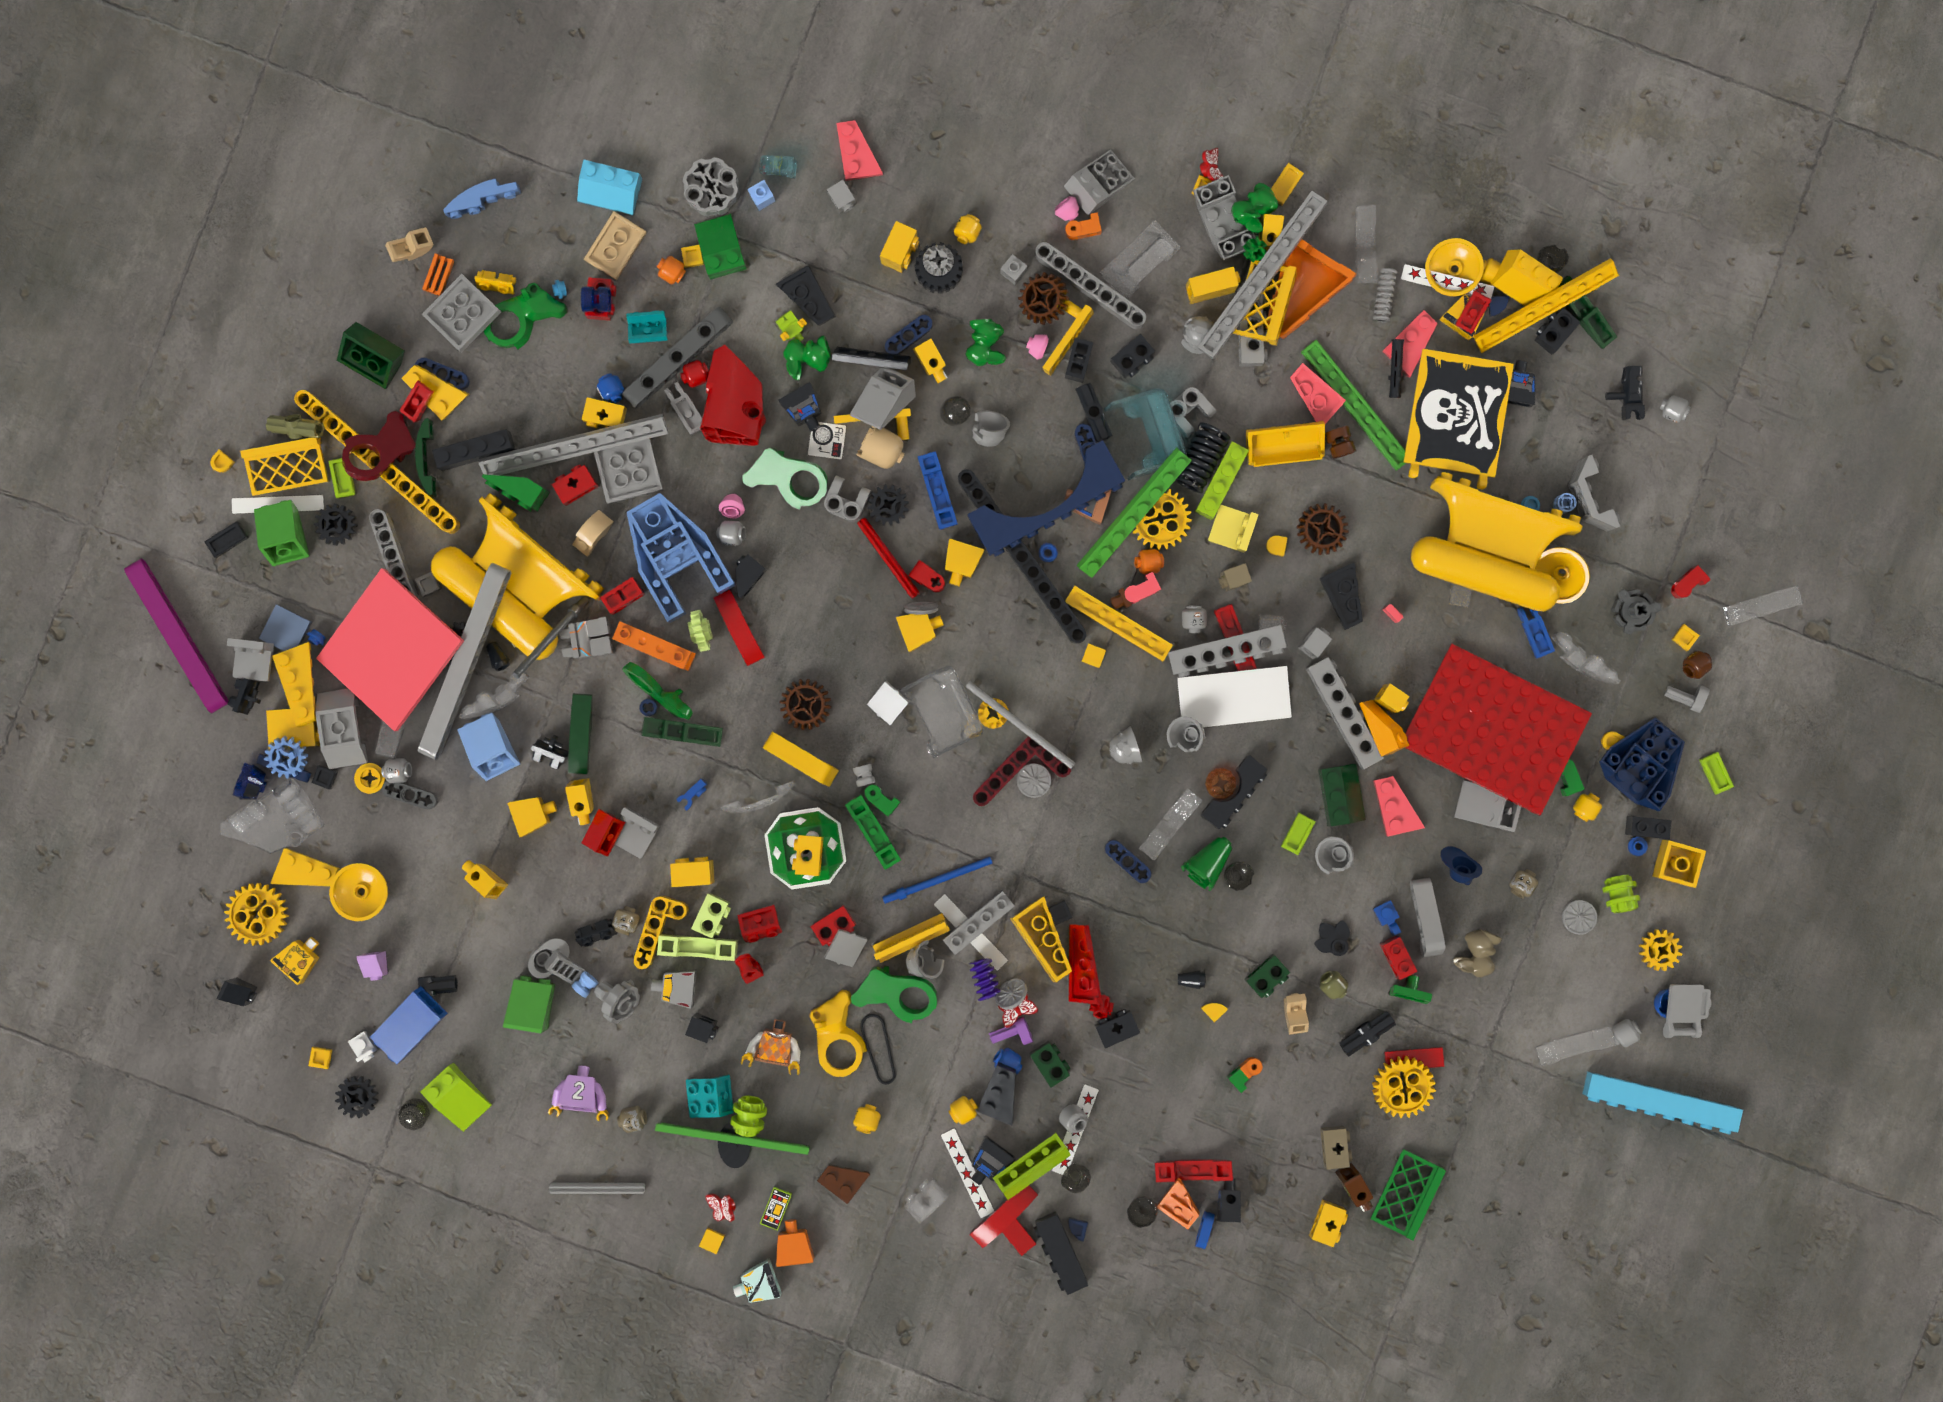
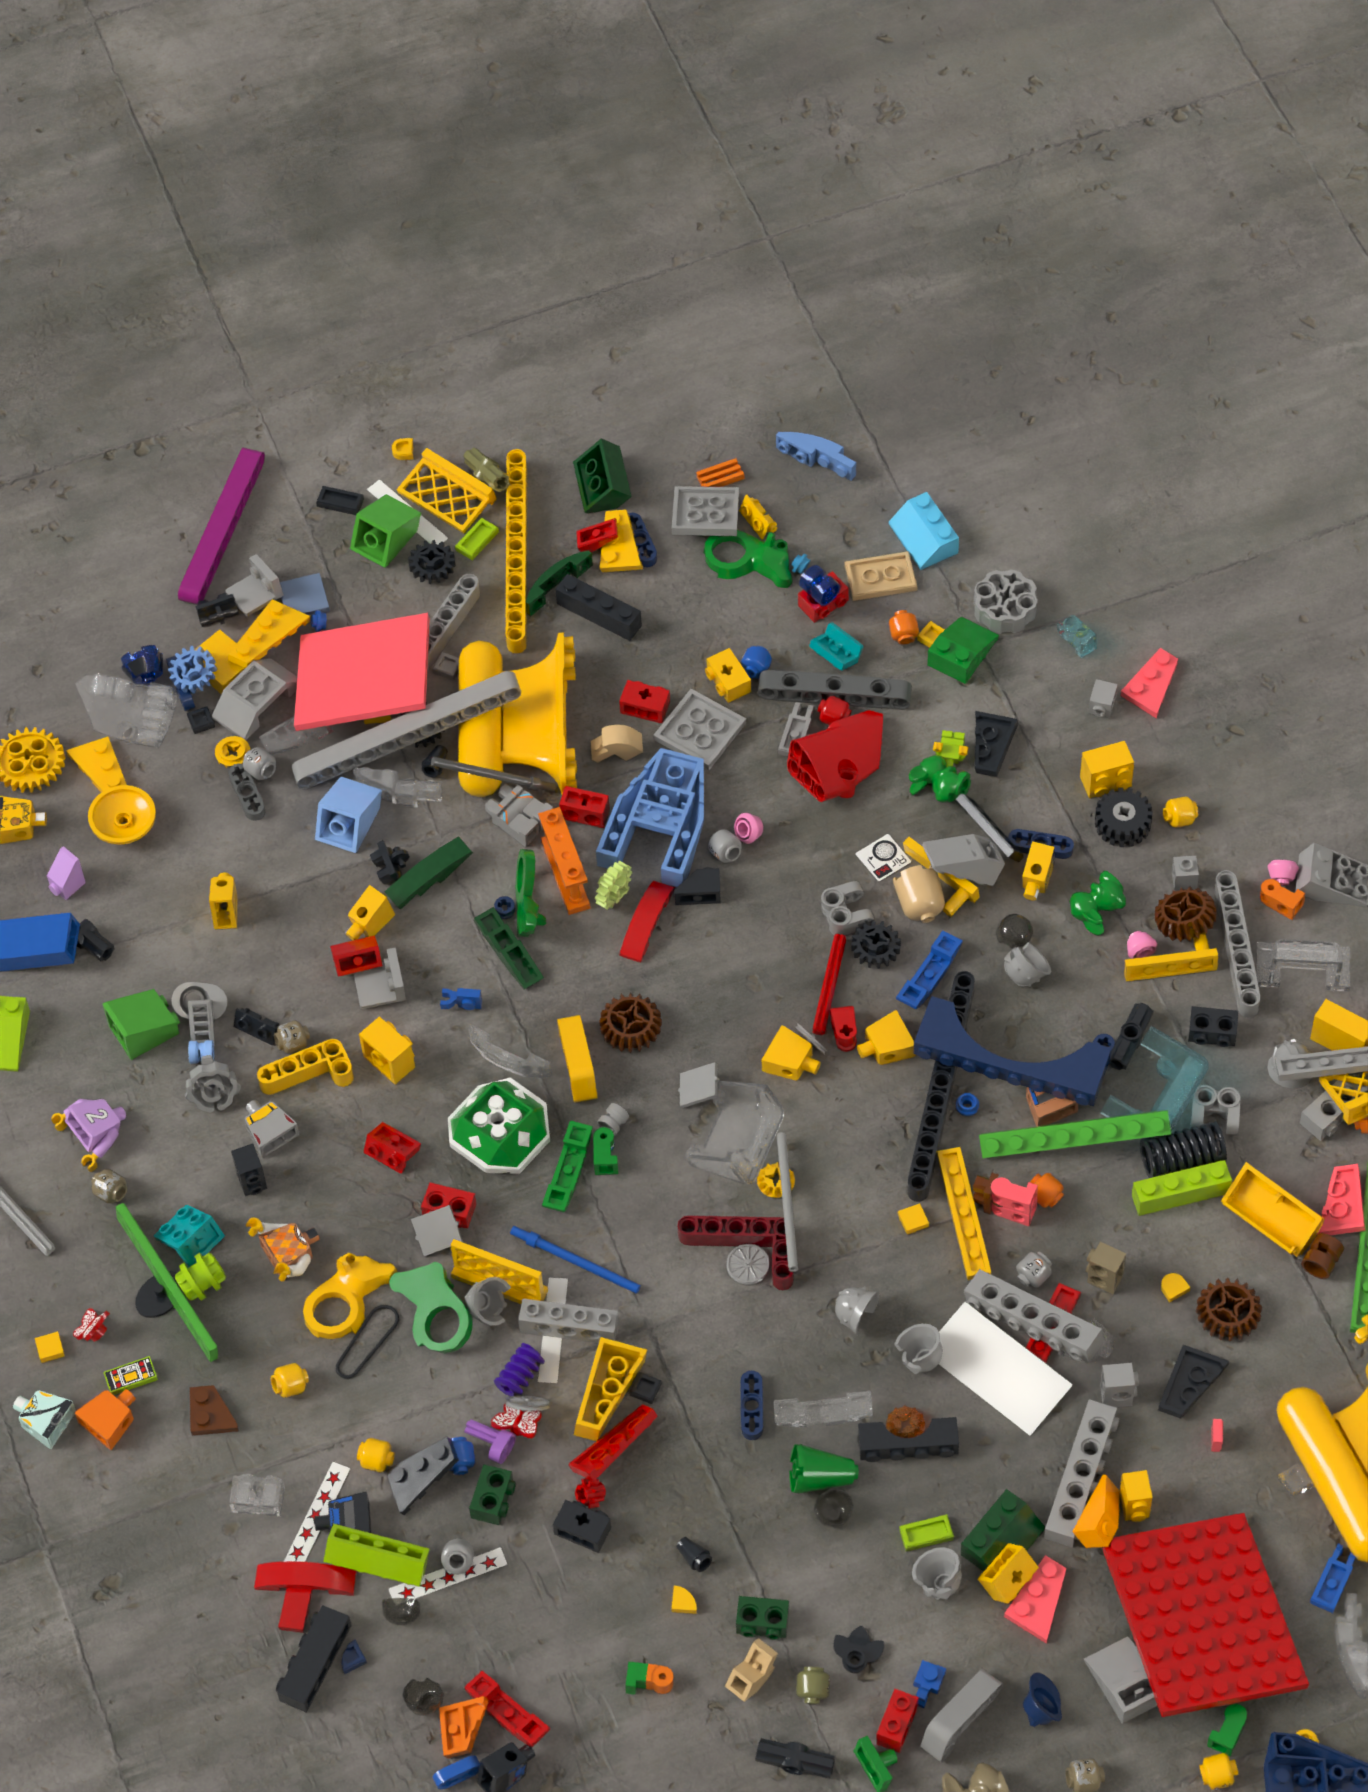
camera: 50 degrees right, 30 degrees down
(390, 445) = (544, 543): dark red animal -> none
(411, 247) = (724, 438): tan brick -> none
(526, 491) = (598, 661): green slope -> none
(530, 814) = (317, 891): yellow torso -> none
(574, 446) = (678, 671): light grey plate -> none
(697, 947) = (310, 1098): yellowish green arch -> none
(707, 913) = (360, 1096): yellowish green brick -> none
(749, 968) = (341, 1165): red piece -> none
(761, 195) = (1038, 640): light blue brick -> none
(778, 470) = (817, 835): animal -> none
(802, 406) = (893, 811): torso -> none
(810, 867) = (489, 1128): yellow brick -> none
(945, 265) = (1128, 813): light grey gear -> none
(1078, 360) = (1162, 984): black brick -> none
(1165, 536) = (1094, 1169): yellow gear -> none
(1233, 528) = (1150, 1235): light yellow bracket -> none
(1369, 814) = (1008, 1573): none -> yellow brick

